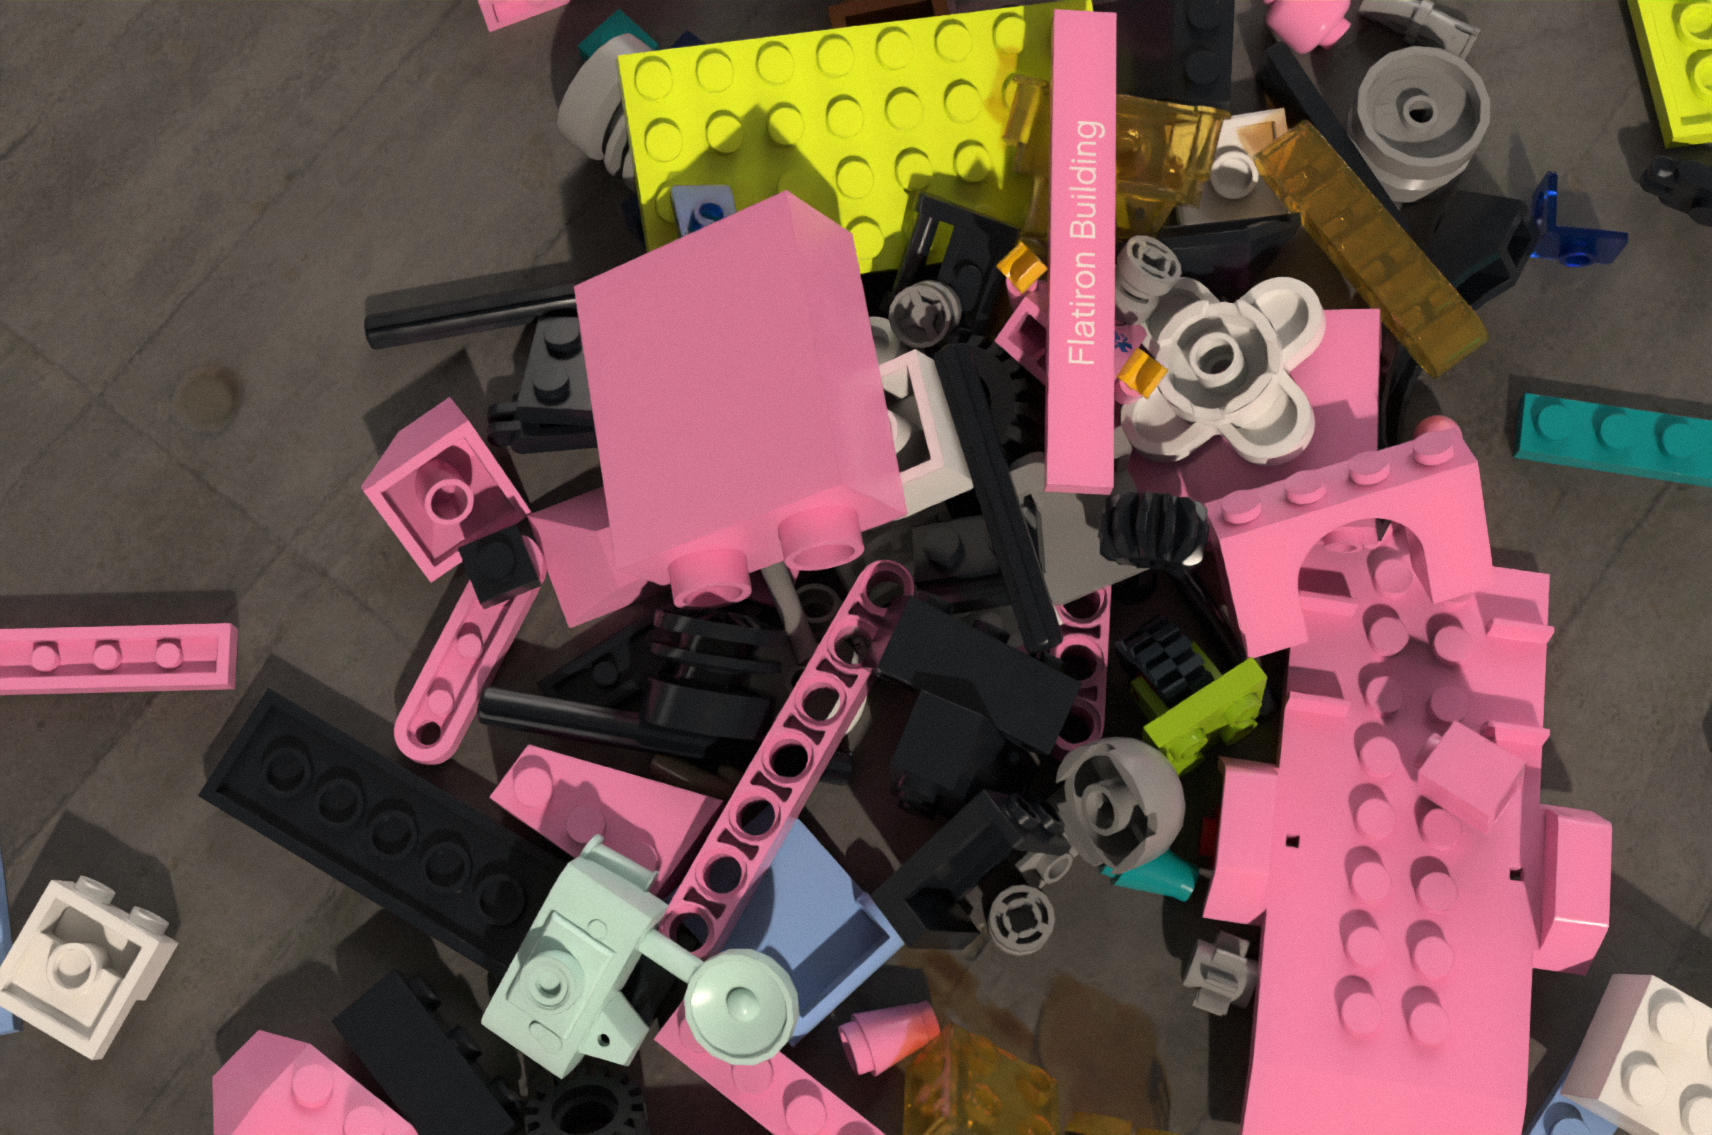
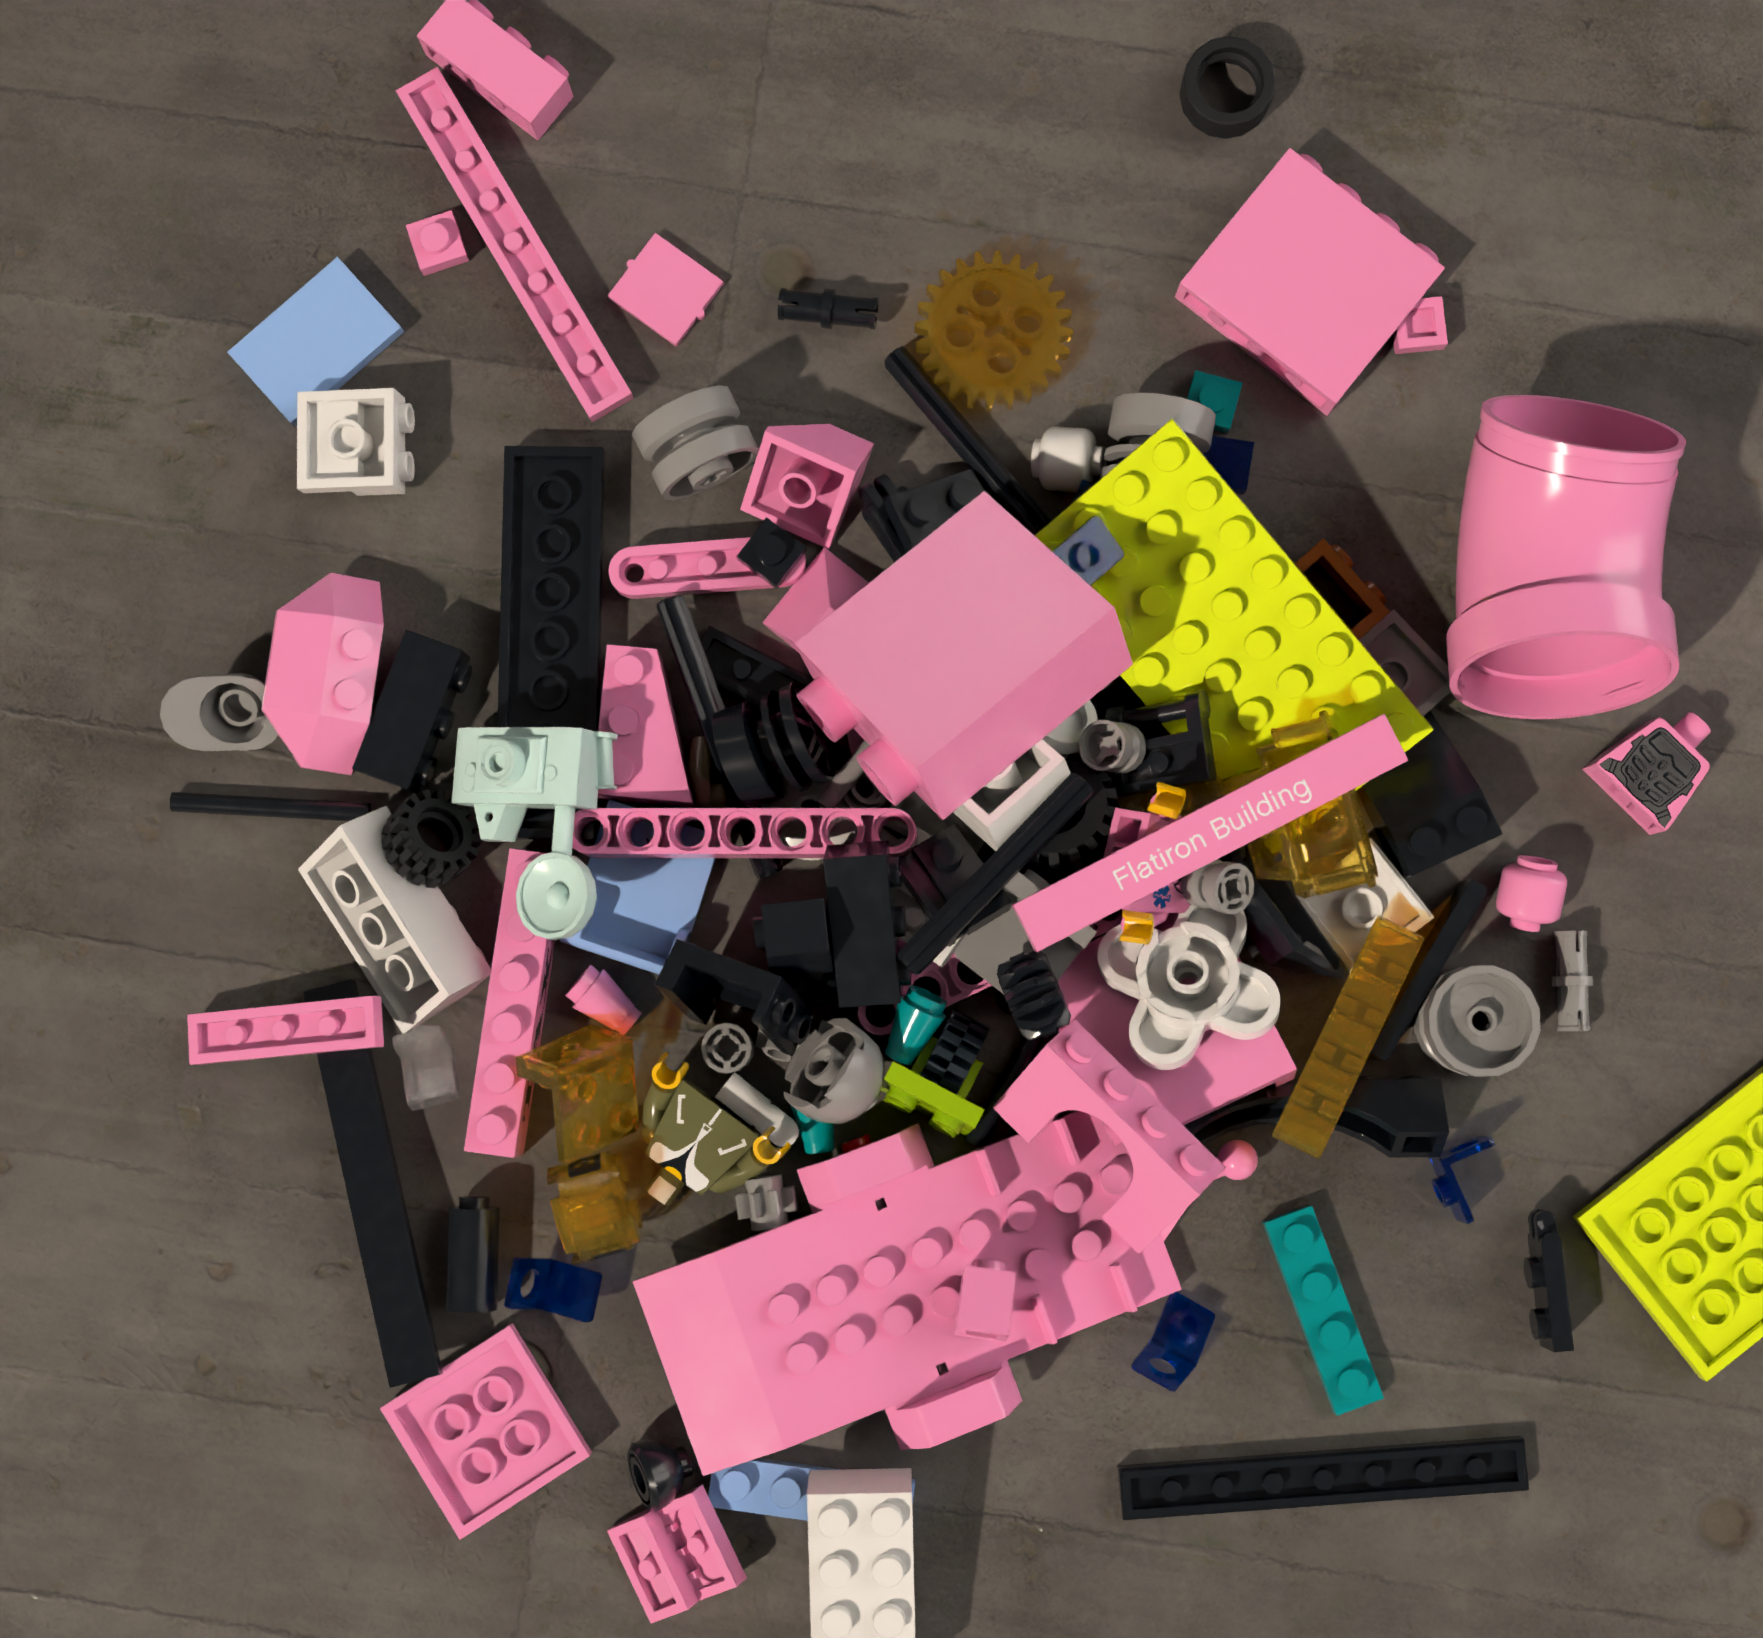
camera: 60 degrees right, 10 degrees up
(144, 531) = (665, 289): none -> bright pink piece
(276, 370) = (828, 308): none -> black pin
(328, 578) = (695, 442): none -> light grey wheel
(388, 174) = (1018, 296): none -> clear yellow gear
(589, 214) = (1066, 458): none -> white head
(1109, 1010) = (698, 1139): none -> olive torso
(1111, 688) = (914, 1024): none -> teal cone
(1111, 928) = (757, 1110): none -> white bar
(1606, 607) = (1176, 1339): none -> clear blue bracket

